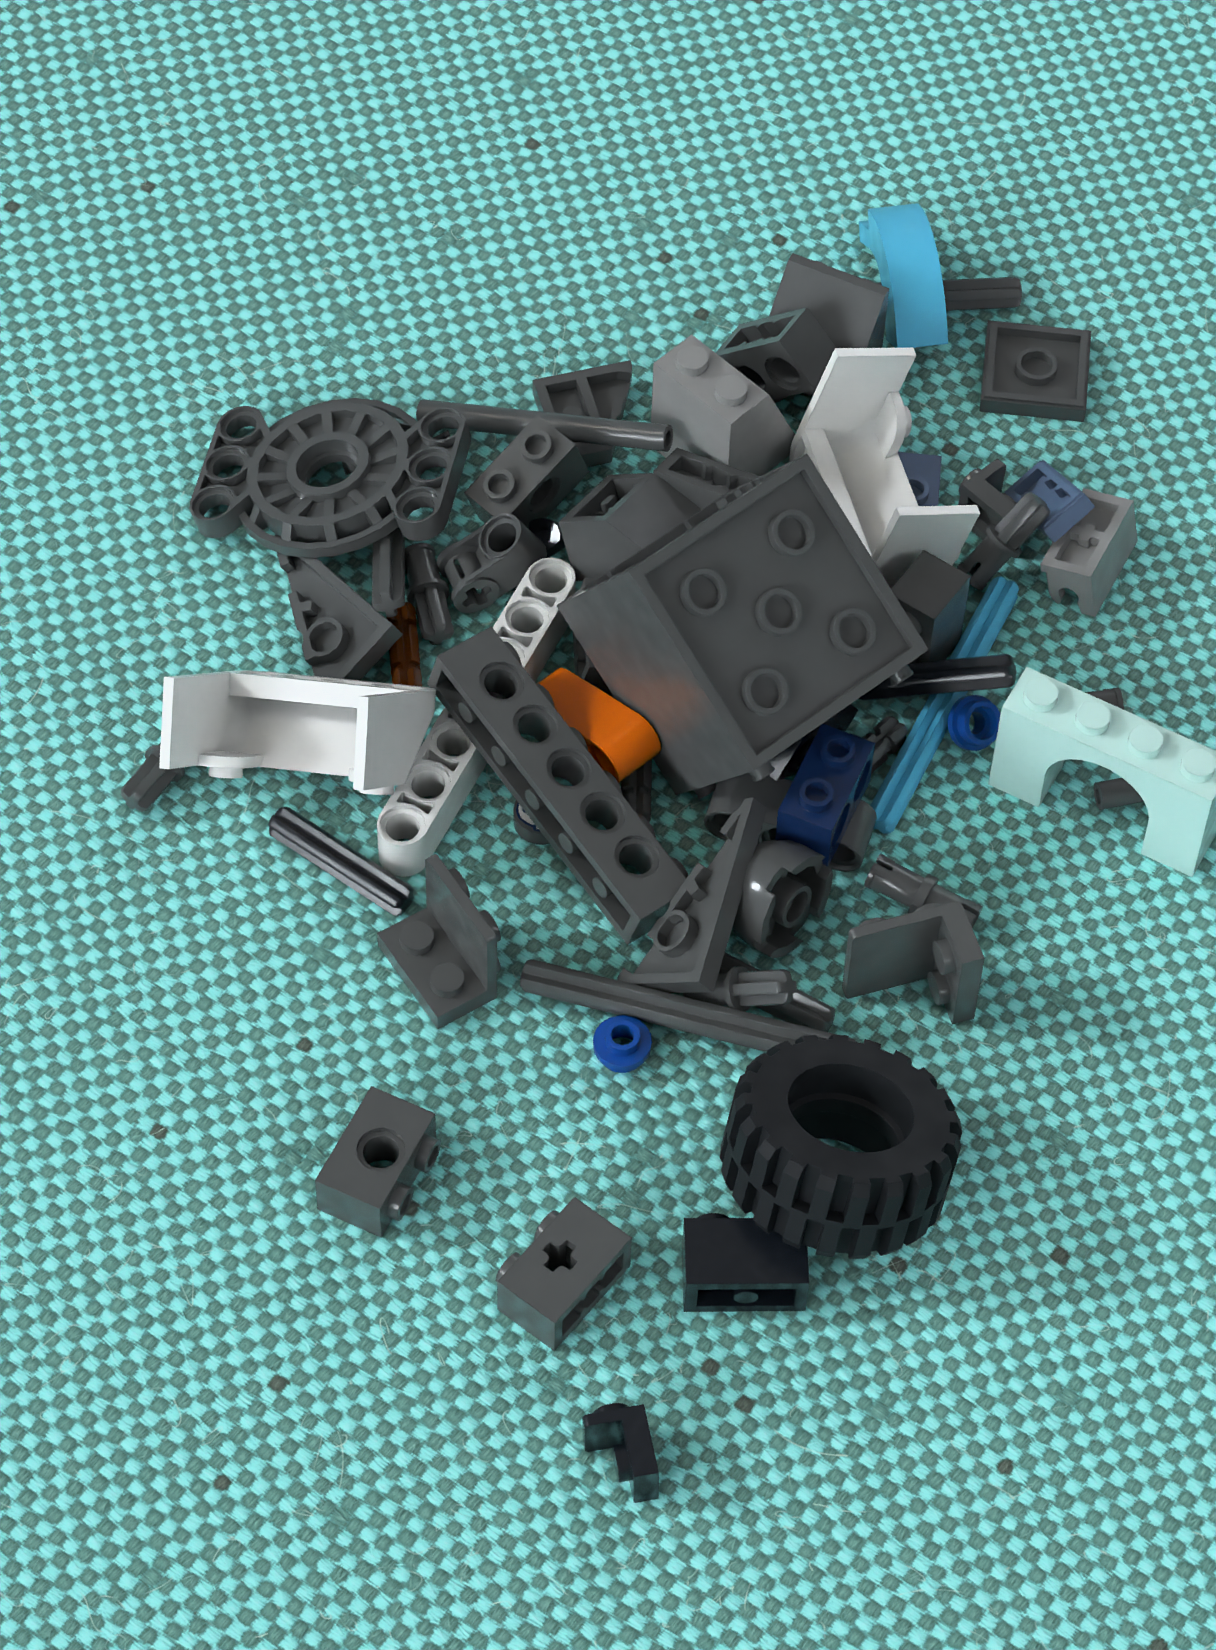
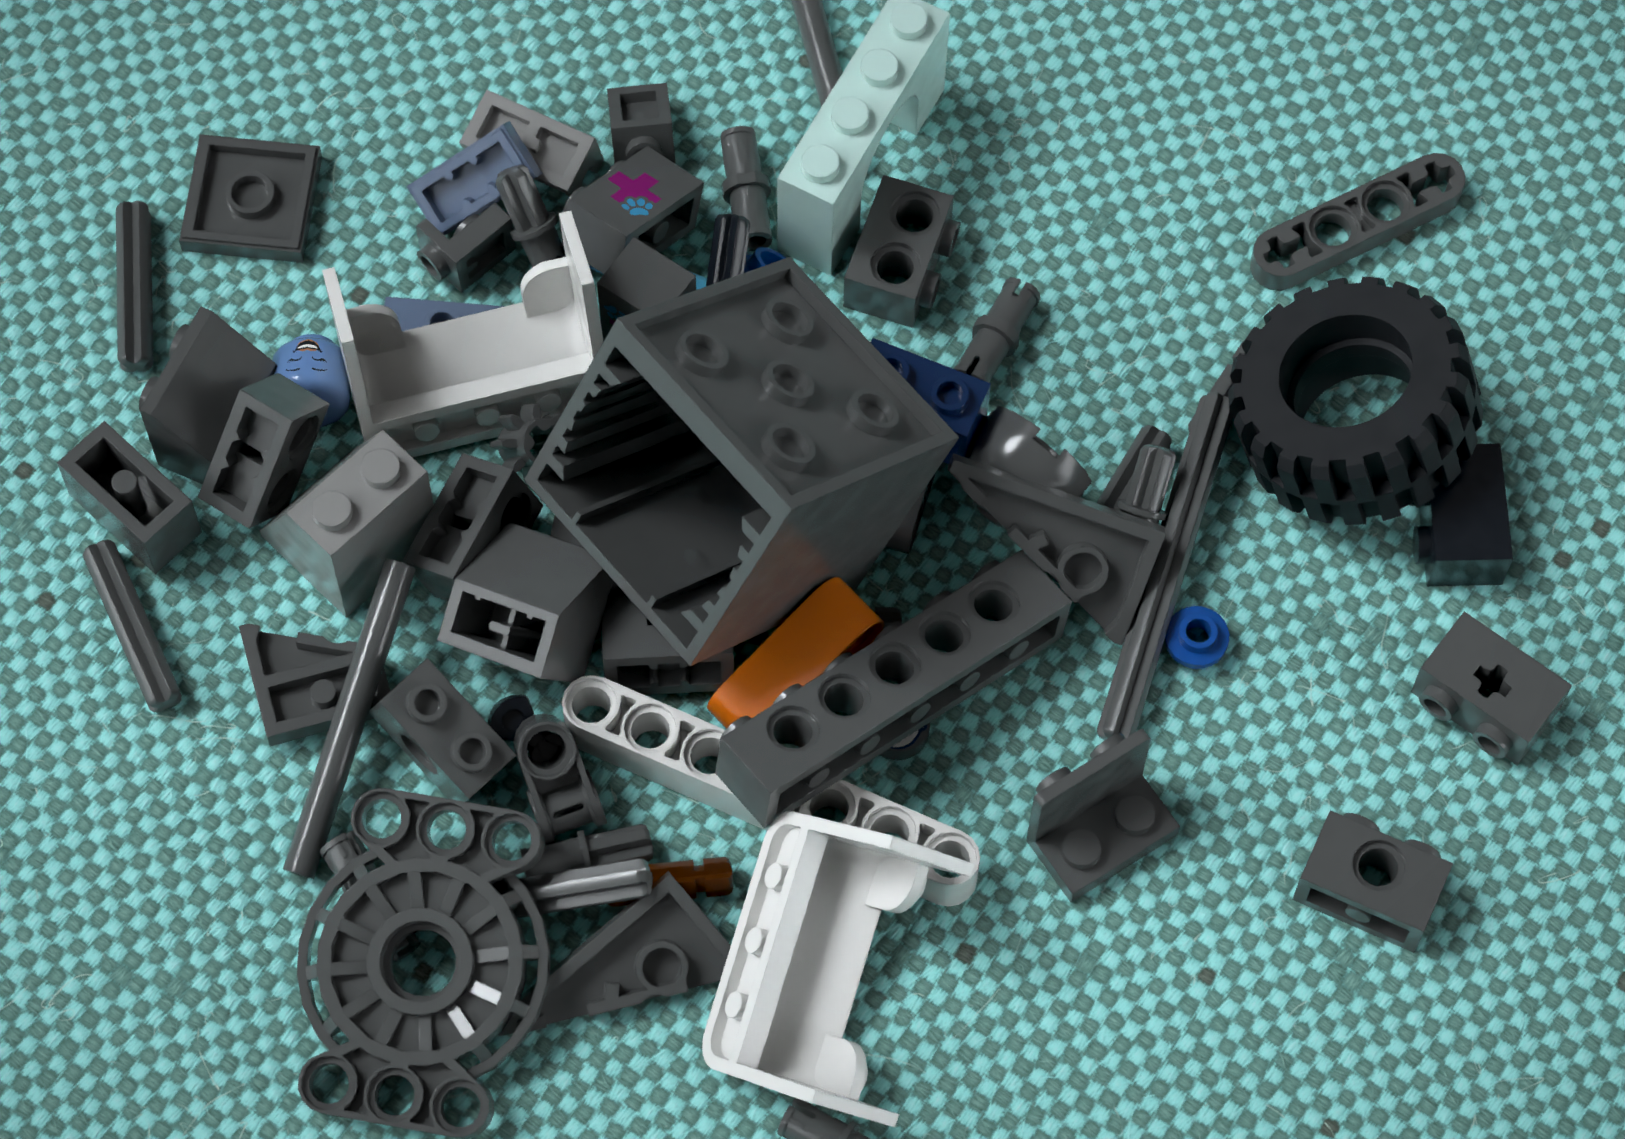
camera: 90 degrees left, 10 degrees up
(341, 861) = (969, 941): black axle -> none
(637, 303) = (132, 626): none -> dark grey axle
(736, 282) = (129, 497): none -> dark grey brick
(911, 271) = (110, 306): medium azure arch -> none
(916, 946) = (1100, 303): dark grey bracket -> none
(1006, 811) = (890, 249): none -> dark grey brick
(1022, 610) = (637, 199): none -> dark grey brick
(1059, 1208) = (1362, 227): none -> dark grey beam
(1120, 628) = (640, 119): none -> dark grey bracket

